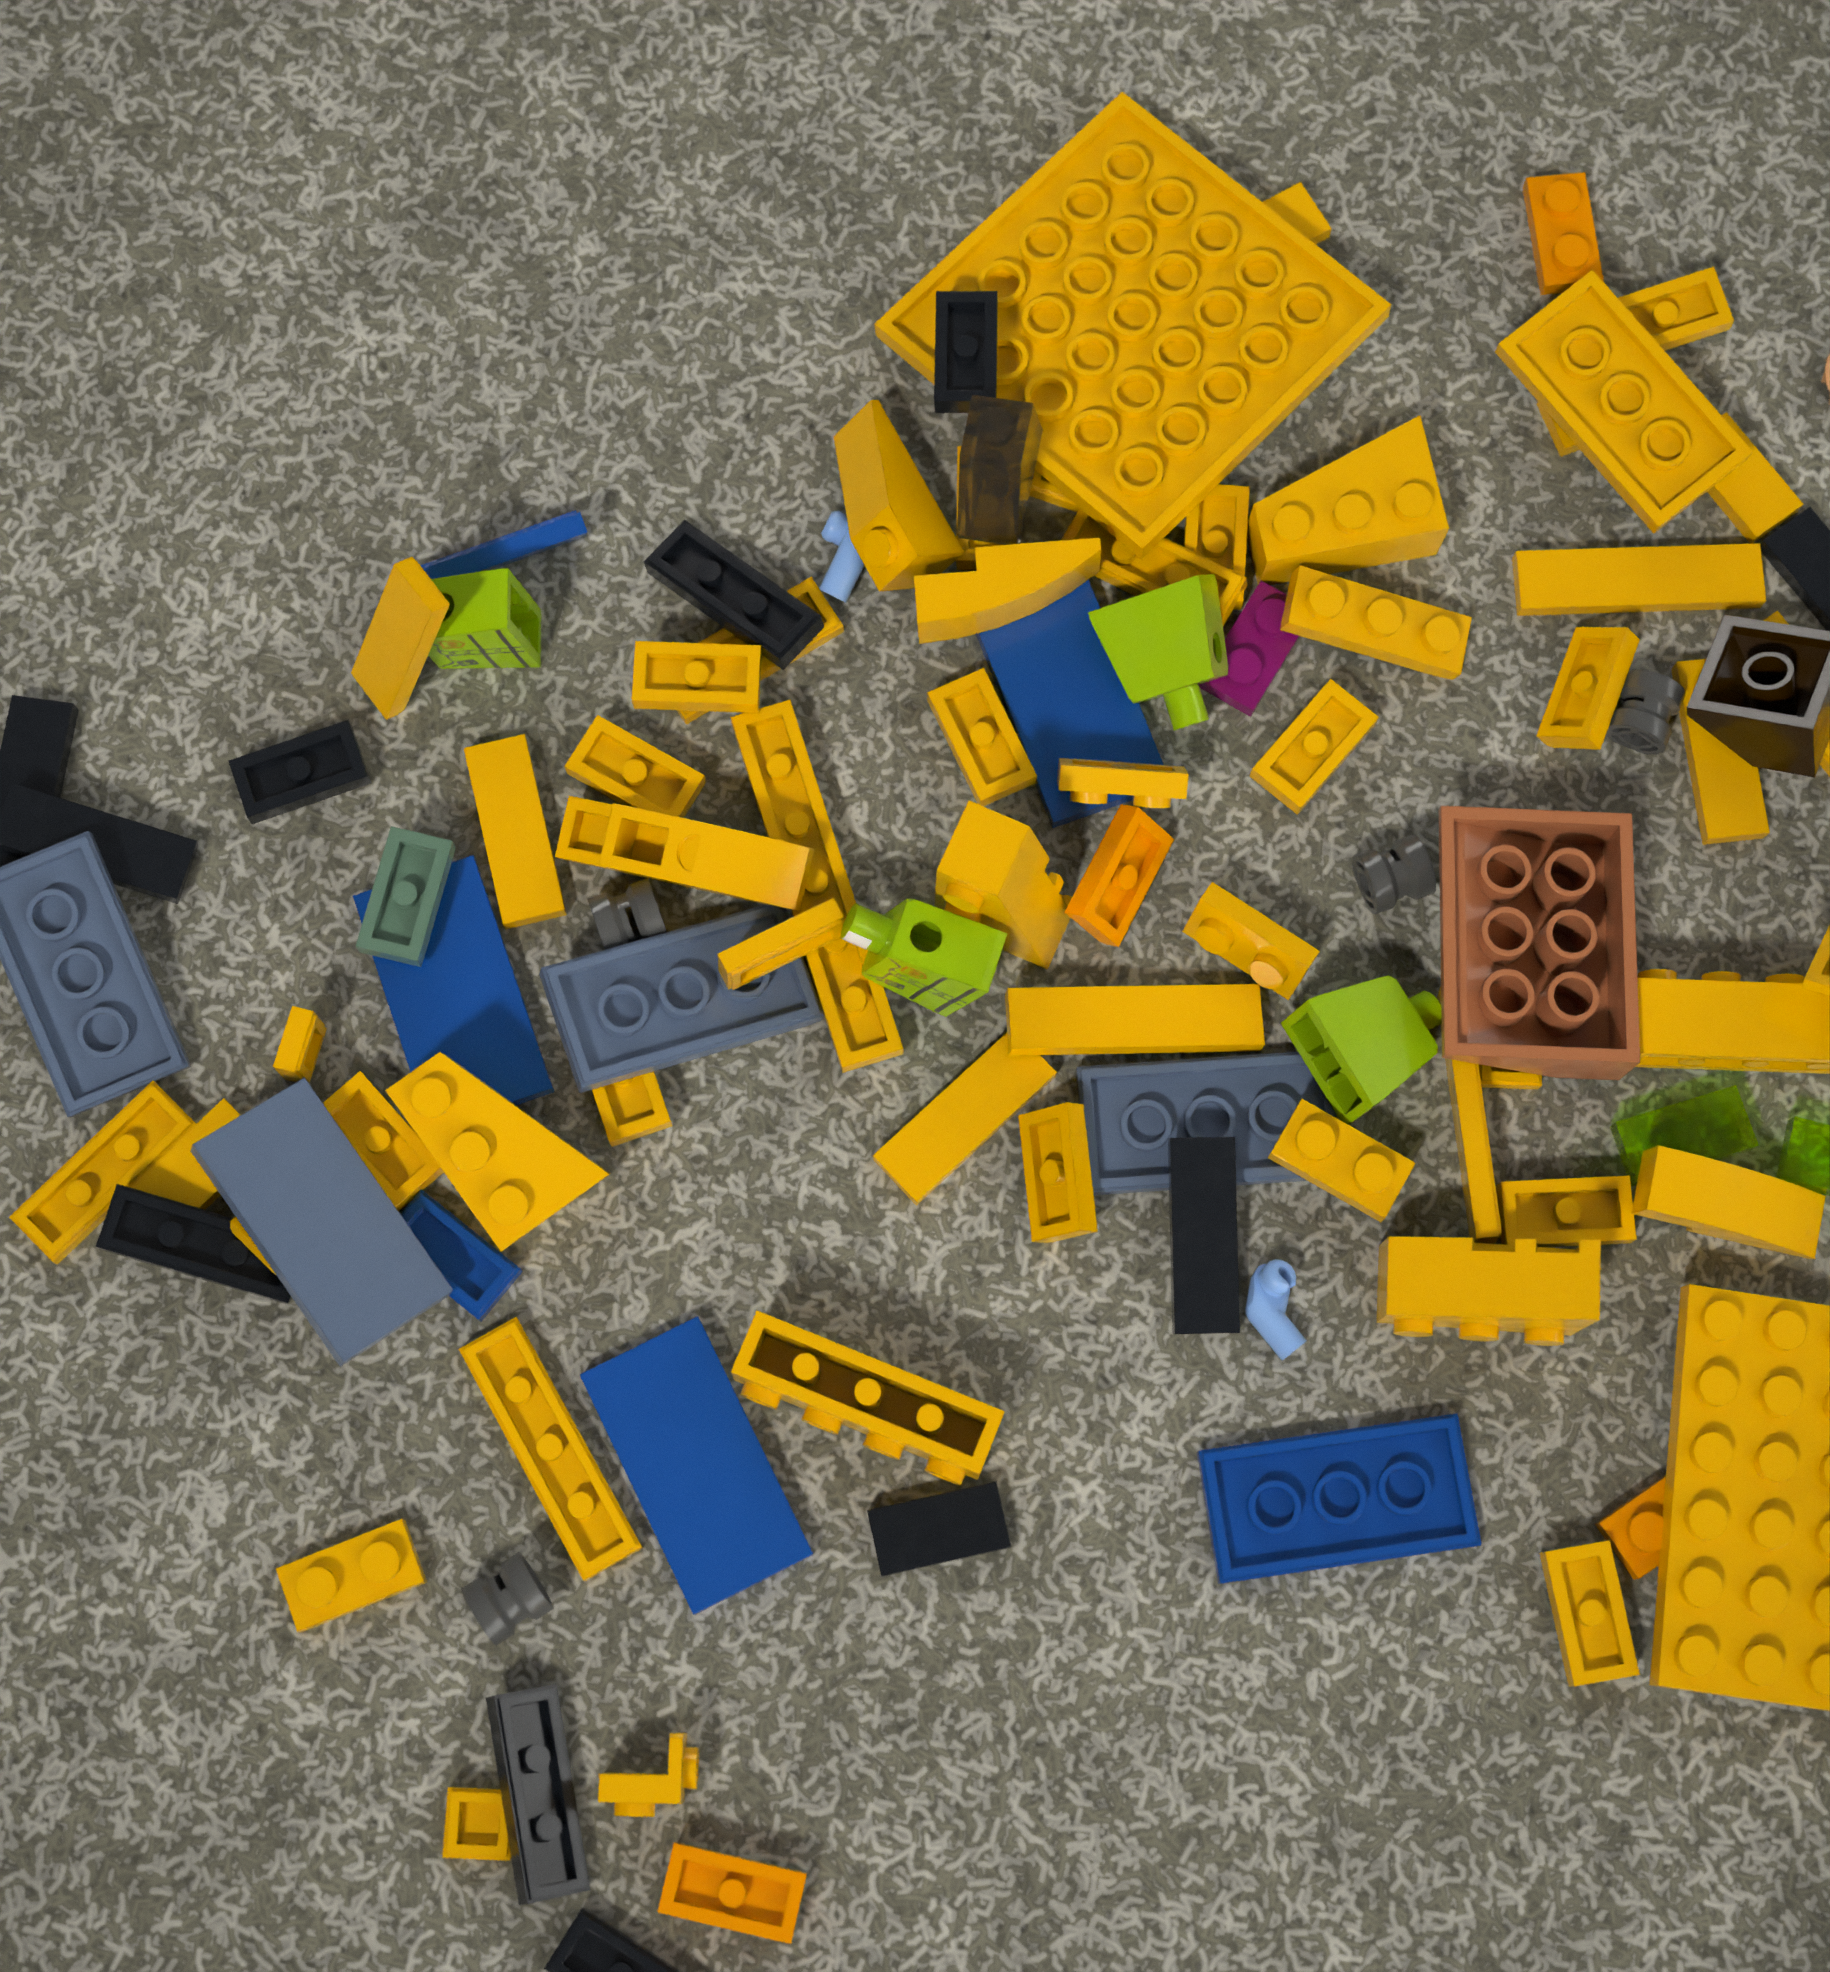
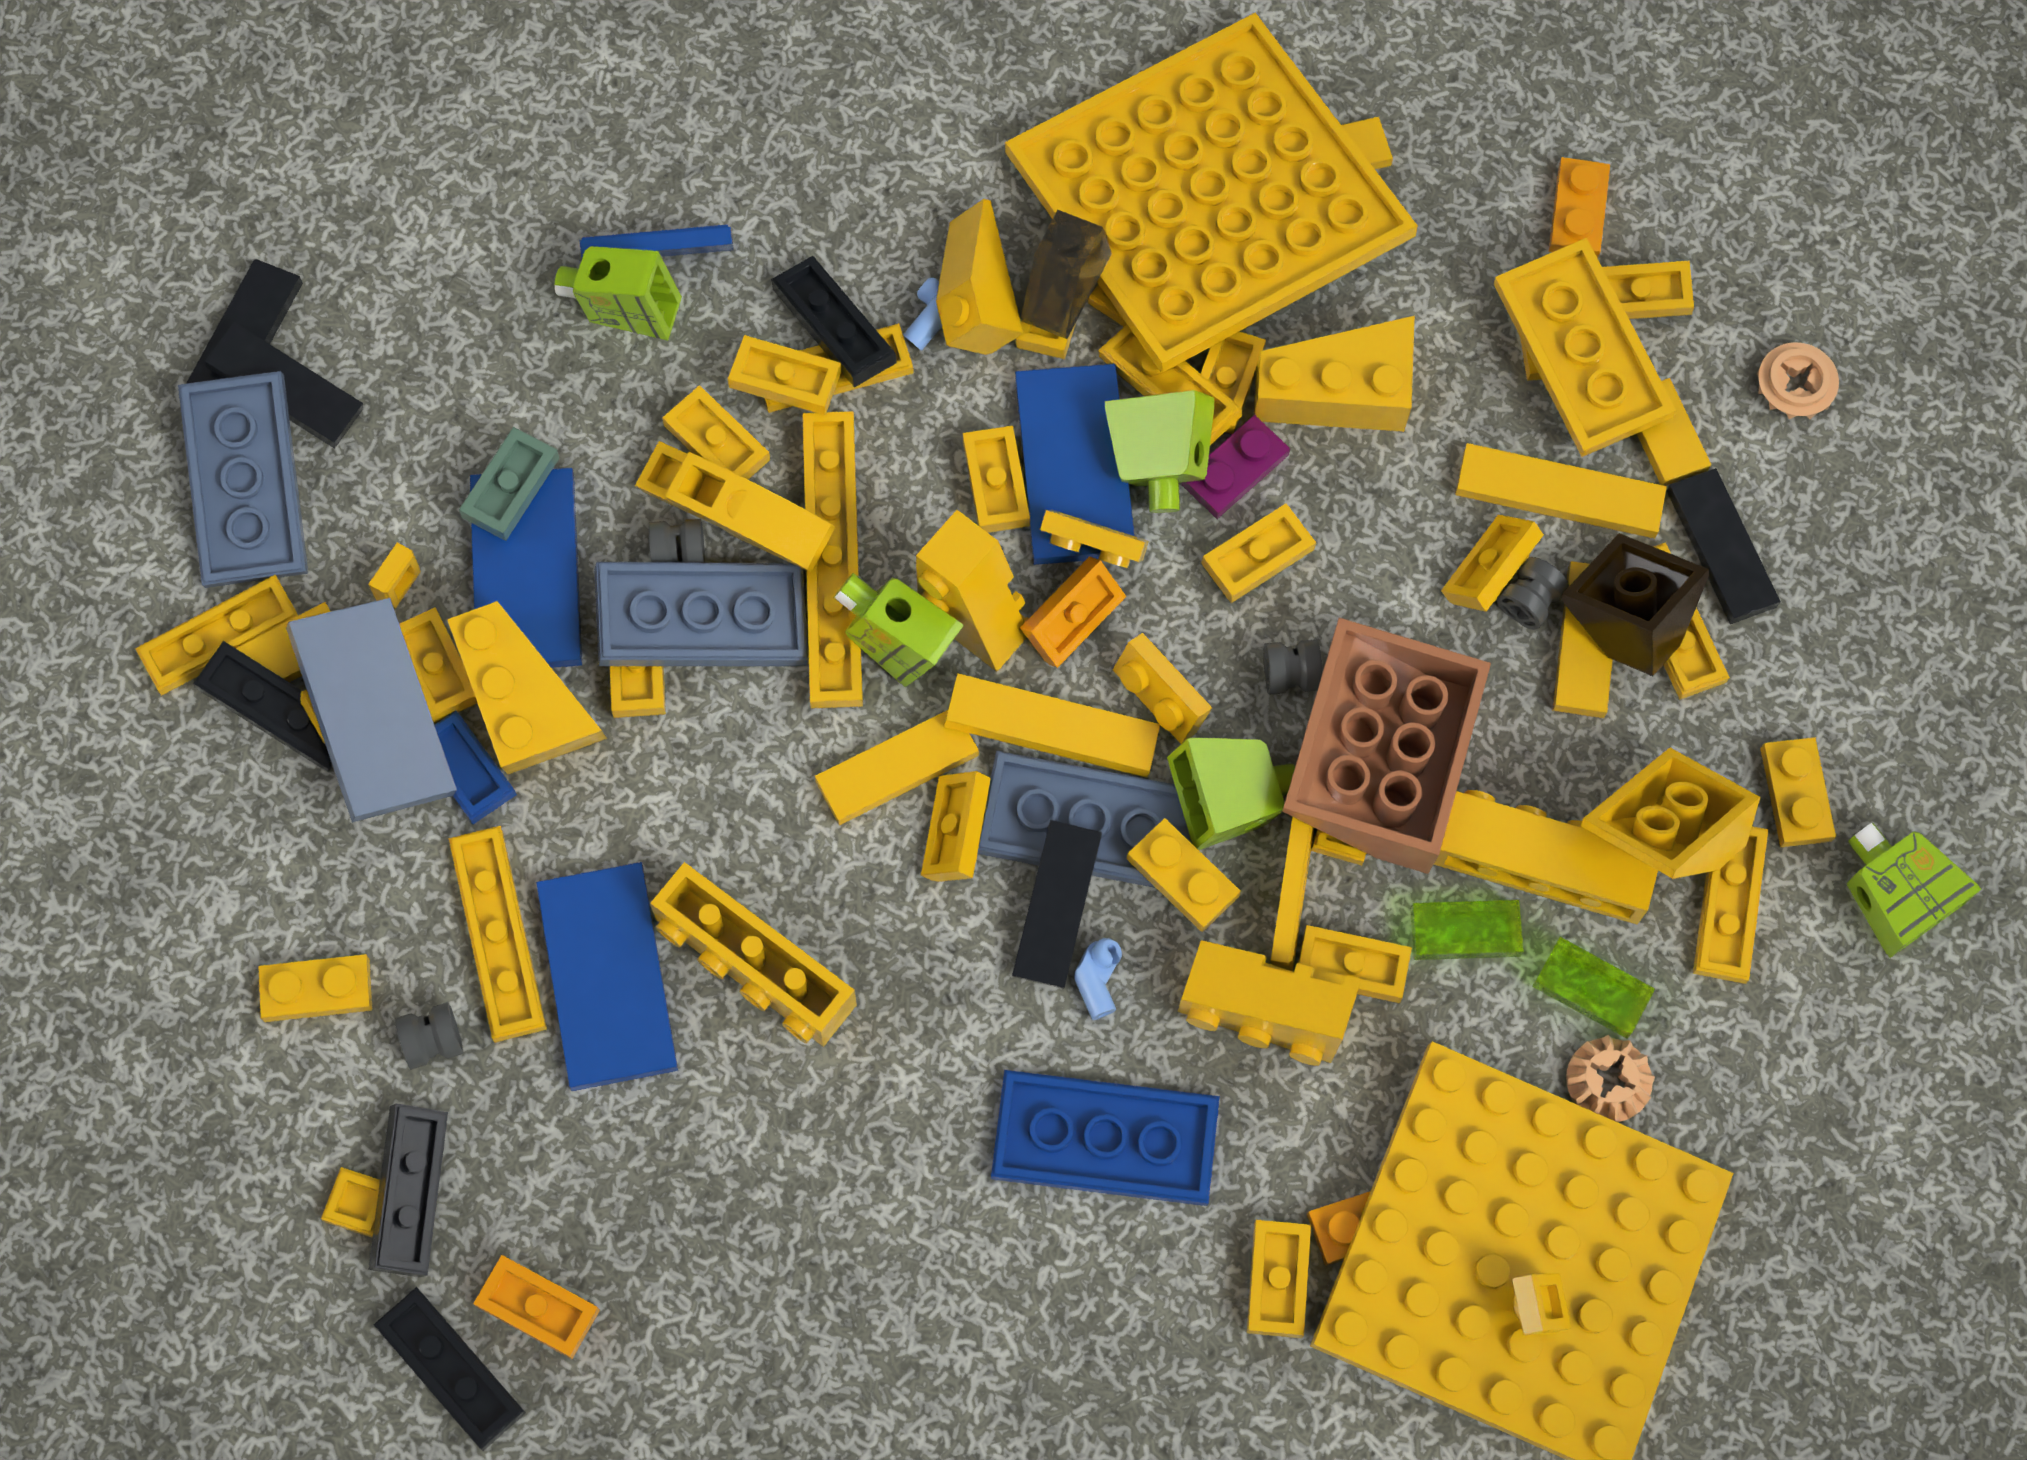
camera: 15 degrees right, 5 degrees down
(299, 772) = (457, 371): black plate -> none
(399, 637) = (561, 285): yellow tile -> none
(515, 831) = (610, 459): yellow tile -> none
(638, 1792) = (486, 1209): yellow bracket -> none
(780, 944) = (787, 592): yellow tile -> none
(938, 1529) = (781, 1075): black tile -> none
(965, 348) = (1067, 175): black plate -> none
(1005, 587) = (1044, 367): yellow slope -> none
(1375, 623) = (1336, 470): yellow plate -> none
(1728, 1202) = (1487, 989): yellow slope -> none

